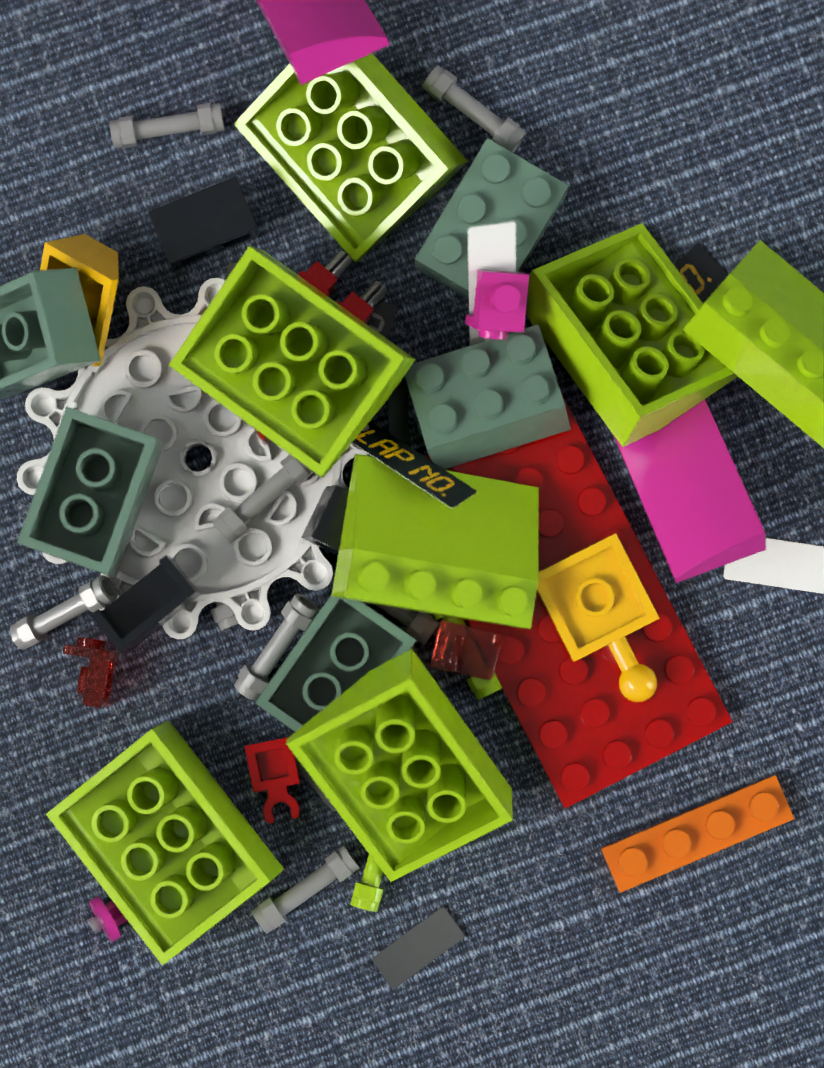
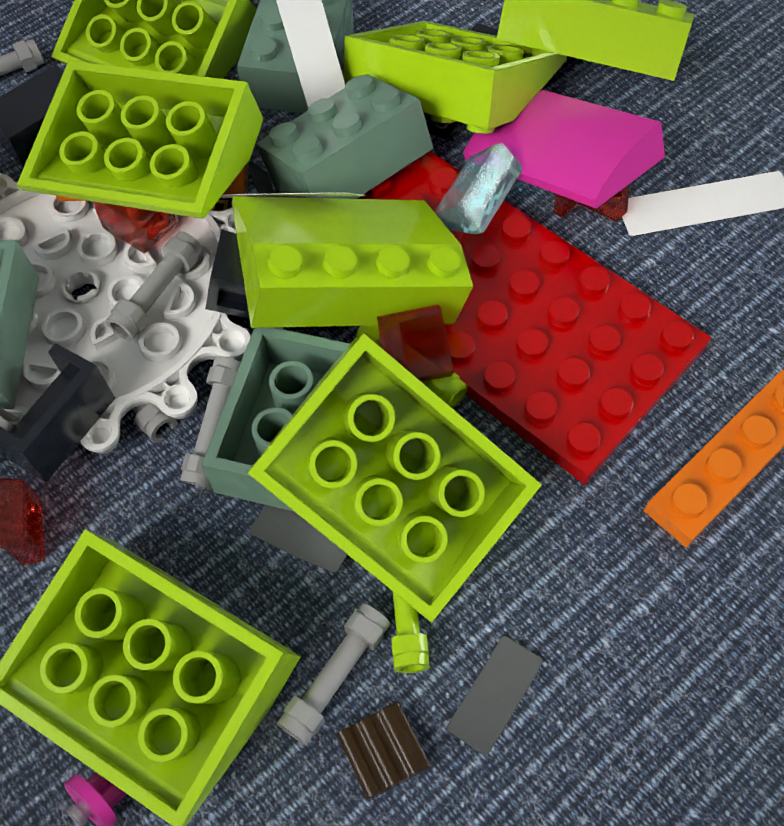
camera: 25 degrees left, 25 degrees down
(273, 769) = (252, 551): red plate -> none
(321, 957) = (383, 751): none -> dark brown piece
(499, 303) = (324, 53): dark pink bracket -> none
(589, 500) = (479, 190): none -> clear light blue slope
(596, 604) = (530, 265): yellow plate -> none

